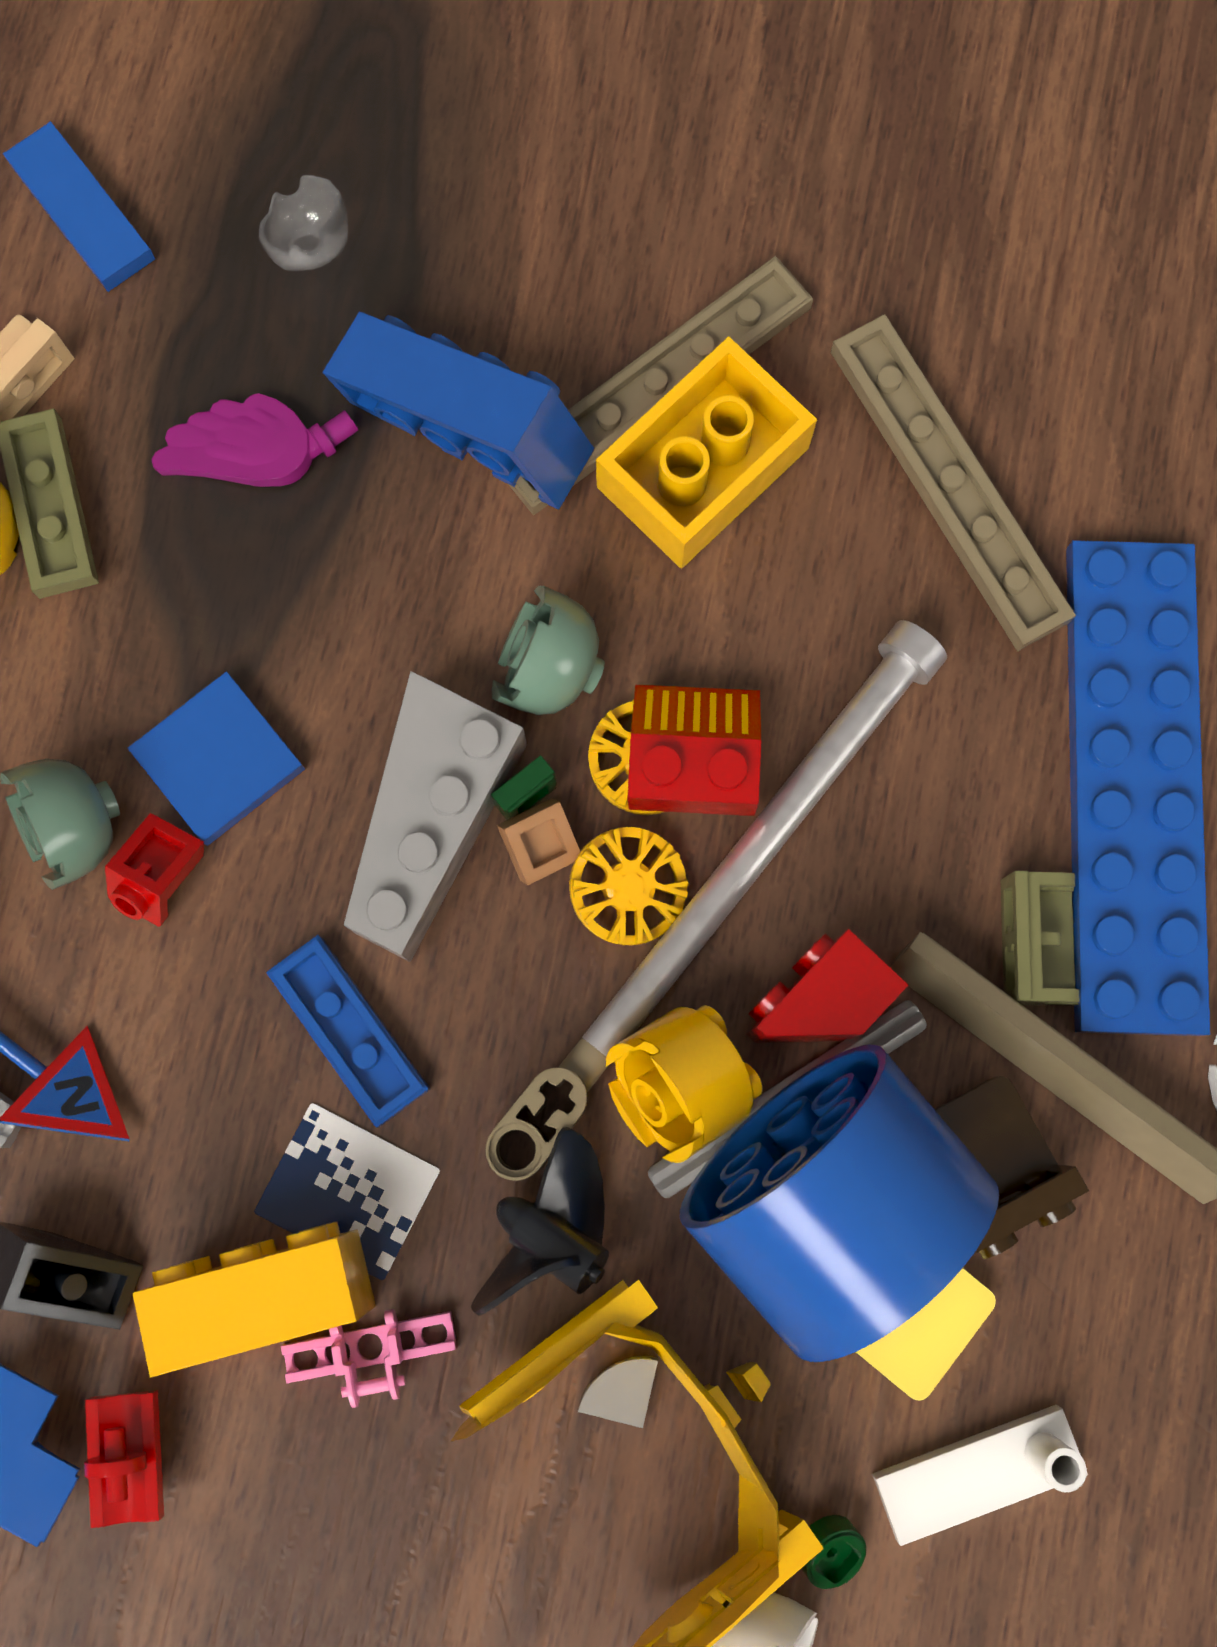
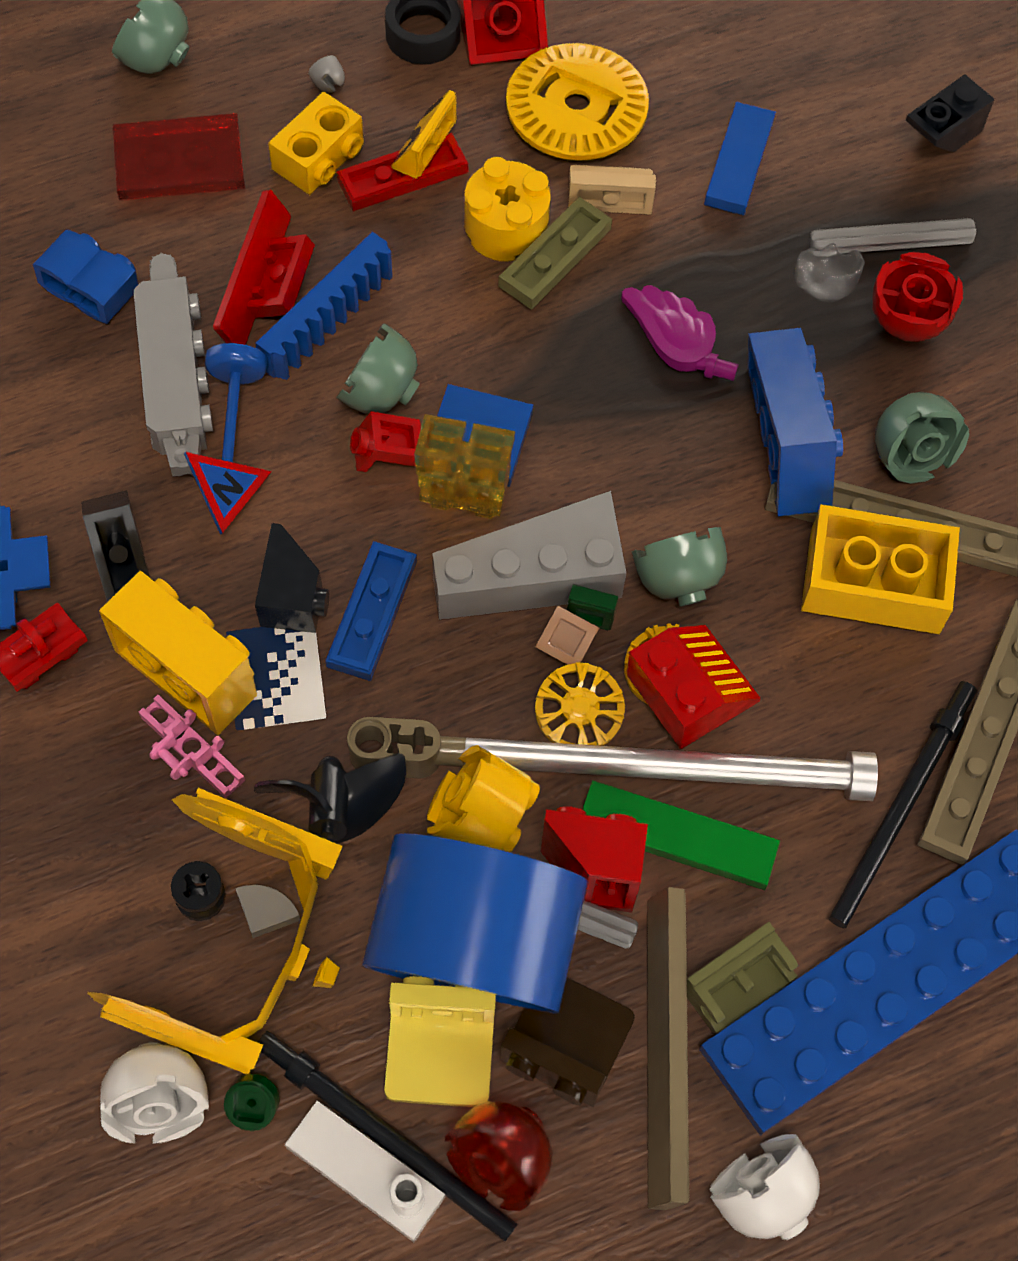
camera: 50 degrees right, 15 degrees down
(255, 1109) = (289, 586): none -> black slope
(269, 826) = (461, 472): none -> clear yellow hips
(309, 122) = (896, 236): none -> light grey axle
(414, 158) = (916, 297): none -> red cylinder
(552, 1442) = (203, 900): none -> black wheel
(575, 287) = (920, 436): none -> sand green cylinder
(833, 1470) = (304, 1072): none -> black bar
(840, 886) = (690, 836): none -> green tile
(916, 523) = (944, 728): none -> black bar
(1066, 1319) = (502, 1152): none -> clear red cylinder

